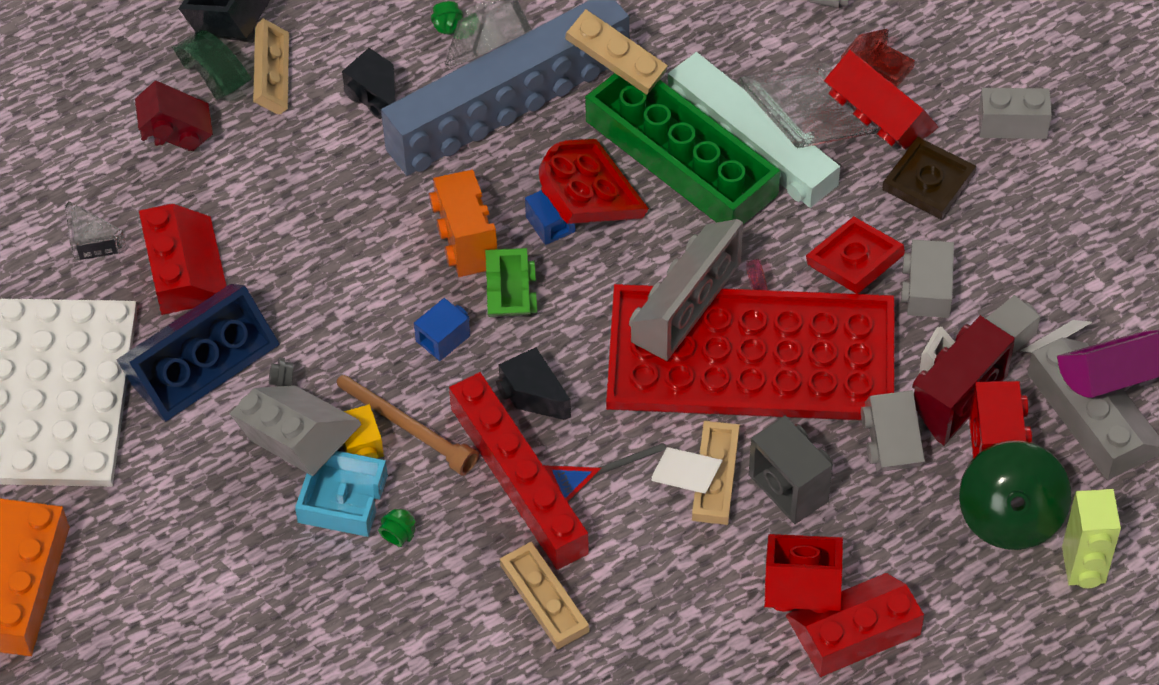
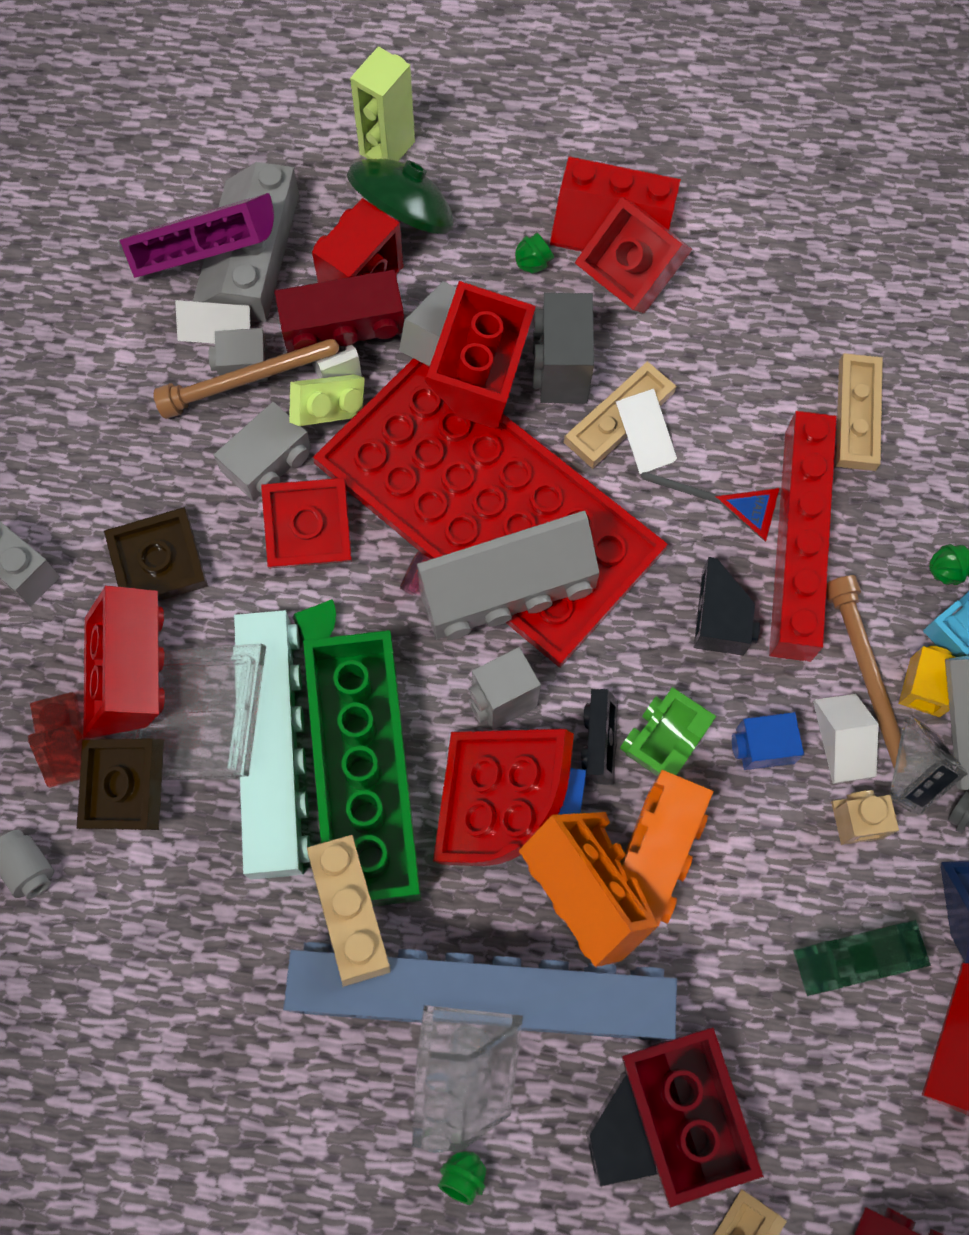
camera: 145 degrees left, 15 degrees up
(287, 262) = (861, 957): none -> clear green brick
(332, 379) = (923, 768): none -> clear slope
(340, 108) = (691, 1117): none -> dark red slope
(348, 324) = (864, 817): none -> tan brick
(396, 372) = (848, 737): none -> white slope
(491, 157) = (589, 886): none -> orange wedge
(552, 263) = (601, 720): none -> black plate
(633, 234) = (504, 689): none -> light grey brick
(791, 211) = (316, 621): none -> green tile
(808, 48) = (120, 784): none -> dark brown plate
(842, 408) = (479, 353): none -> red slope
(885, 547) = (533, 254): none -> green plate
(918, 324) = (325, 399): none -> yellowish green plate
(1024, 271) = (173, 399): none -> medium nougat piece

